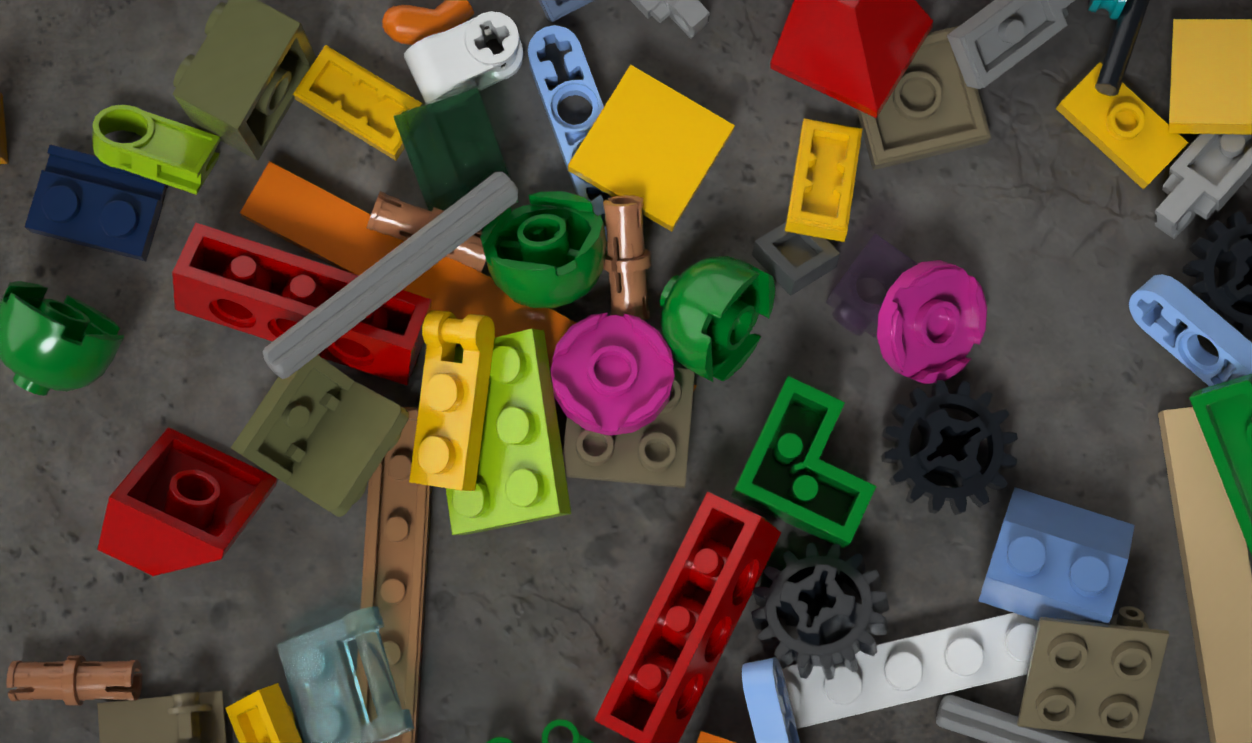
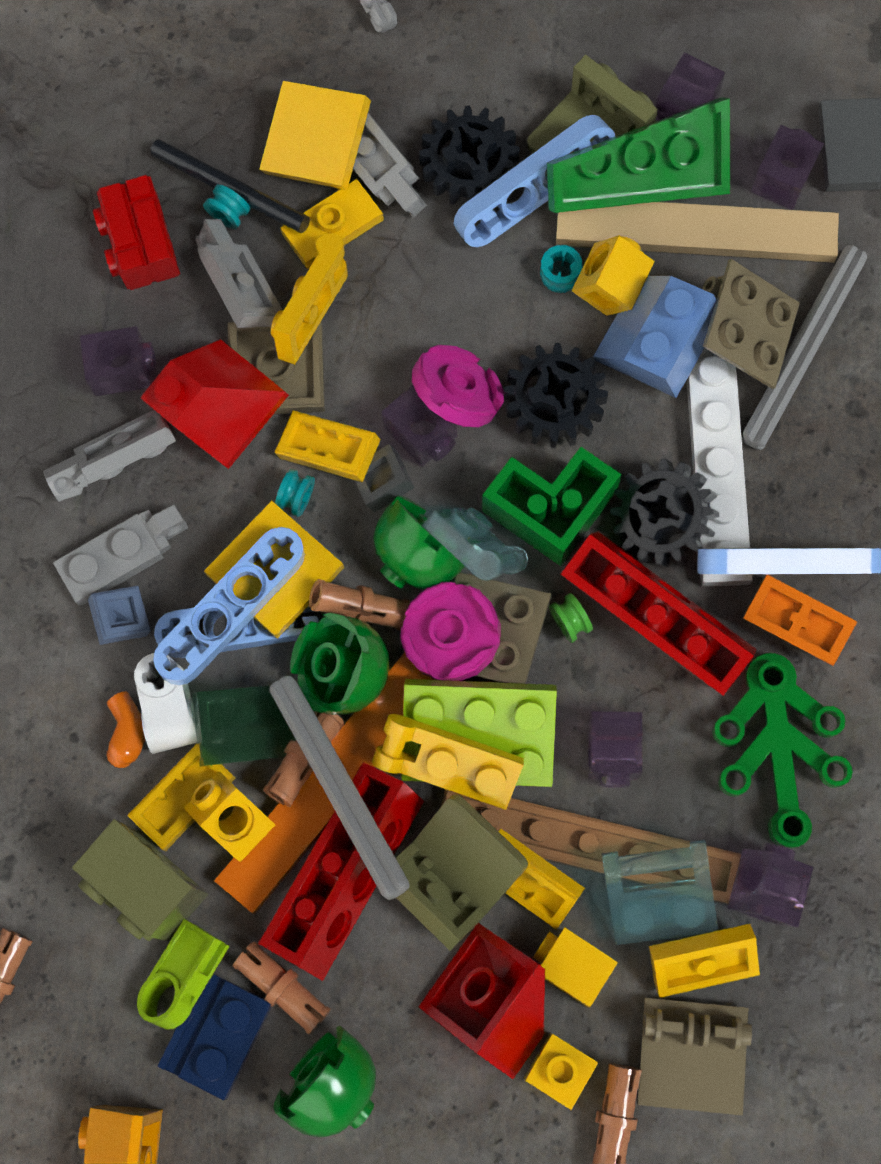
camera: 70 degrees left, 5 degrees down
(117, 604) = (560, 1071): none -> yellow brick
(157, 264) = (281, 987): none -> nougat pin
(241, 598) = (574, 966): none -> yellow brick
(324, 170) = (240, 830): none -> yellow brick
(331, 540) = (543, 887): none -> yellow plate
(510, 601) = (615, 748): none -> clear purple brick
(595, 94) = (223, 600): none -> light blue beam
(664, 518) = (570, 617): none -> bright green bush
(741, 368) = (473, 544): none -> clear light blue plate
(756, 153) = (295, 492): none -> teal bush
(1007, 117) = (310, 299): none -> yellow plate
(1122, 406) = (564, 254): none -> teal bush
(1126, 491) = (613, 275): none -> yellow brick

